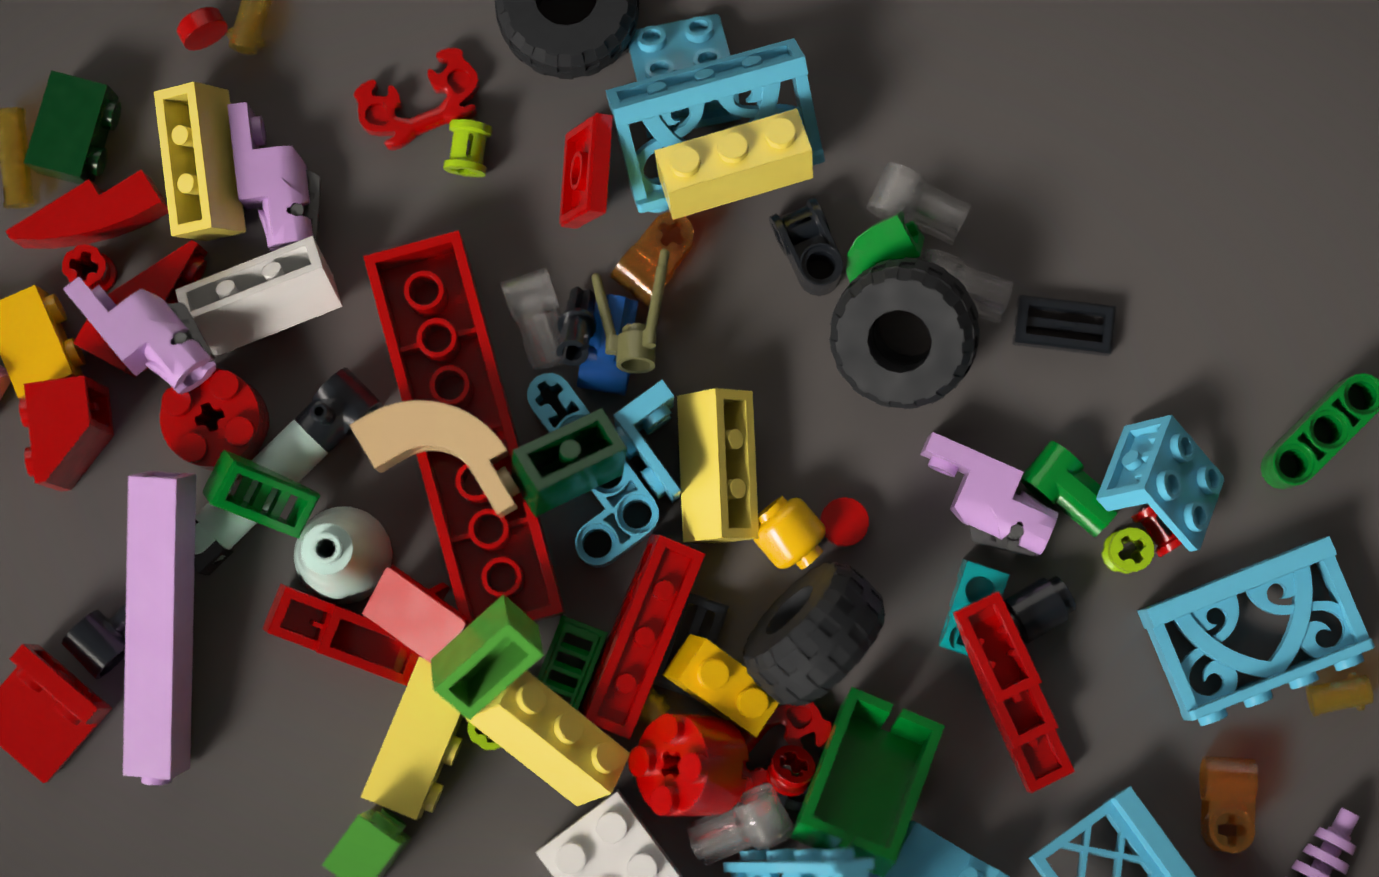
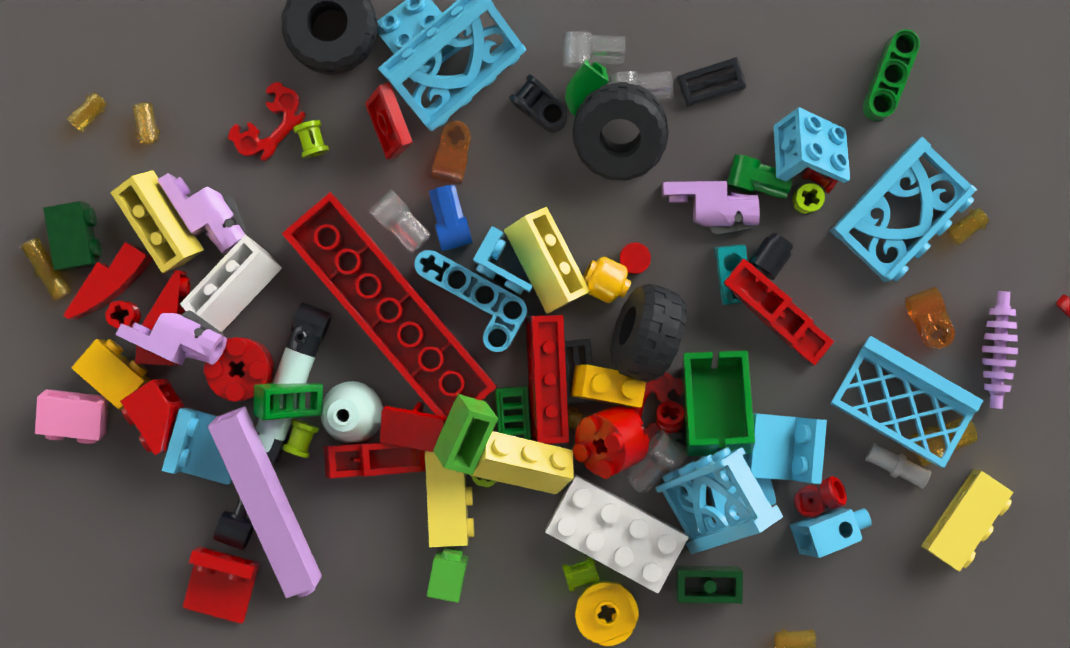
camera: 15 degrees left, 5 degrees up
(94, 501) = (193, 448): none -> medium azure bracket
(202, 28) = (119, 140): red tile -> none
(253, 557) = (300, 438): none -> lime bush
(423, 426) = (362, 318): tan arch -> none
(568, 462) = (459, 299): dark green brick -> none
(576, 327) = (426, 216): black axle -> none
(637, 342) = (465, 210): olive plant -> none
(734, 163) = (474, 77): light yellow brick -> none

